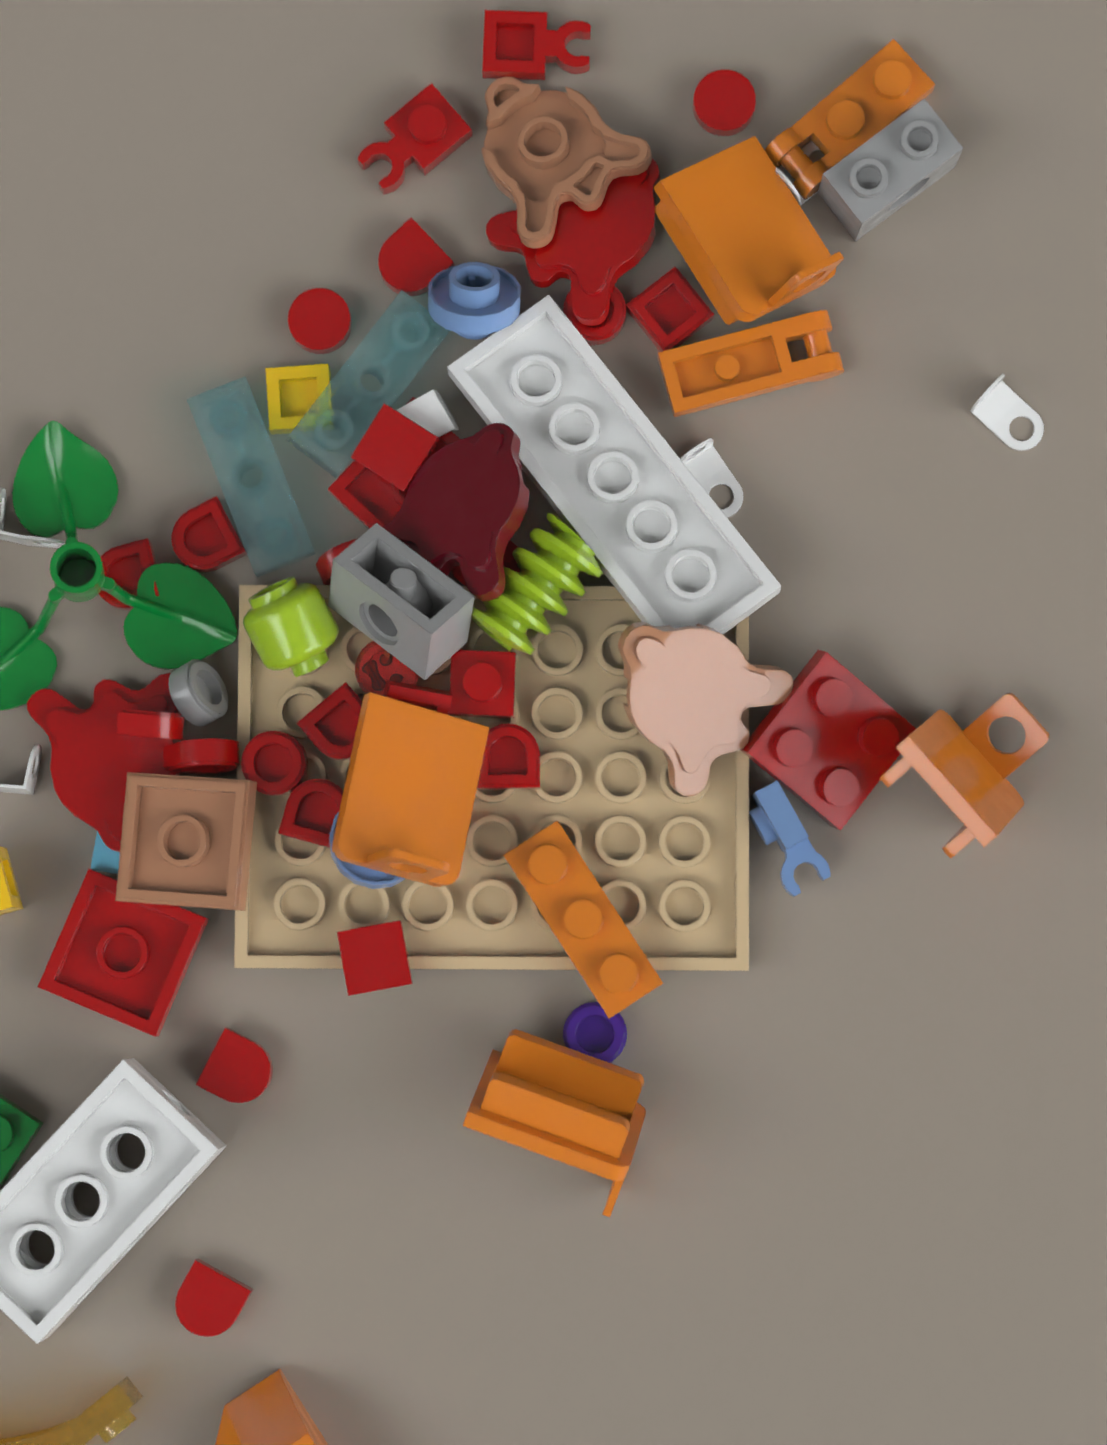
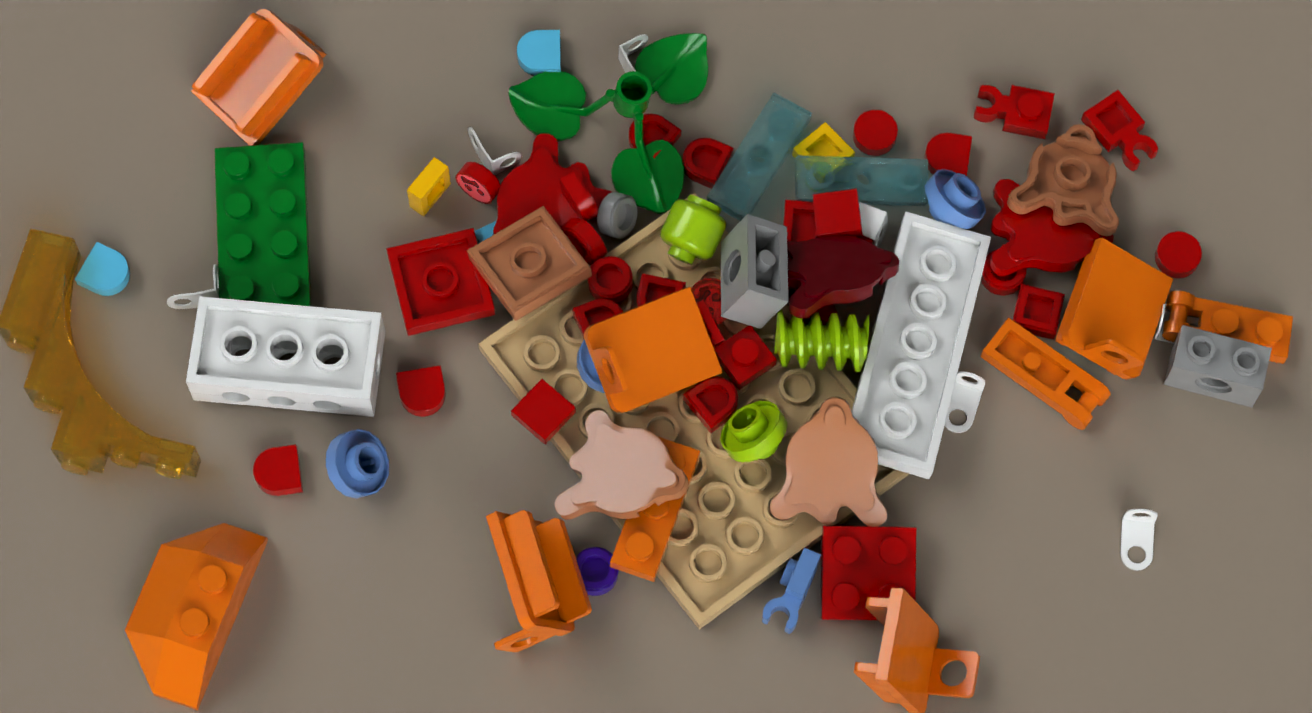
camera: 45 degrees right, 15 degrees down
(35, 819) = (478, 182): none -> red tile
(274, 1210) = (357, 463): none -> medium blue plate
(518, 927) = (620, 472): none -> nougat tile
(583, 745) = (754, 431): none -> lime plate

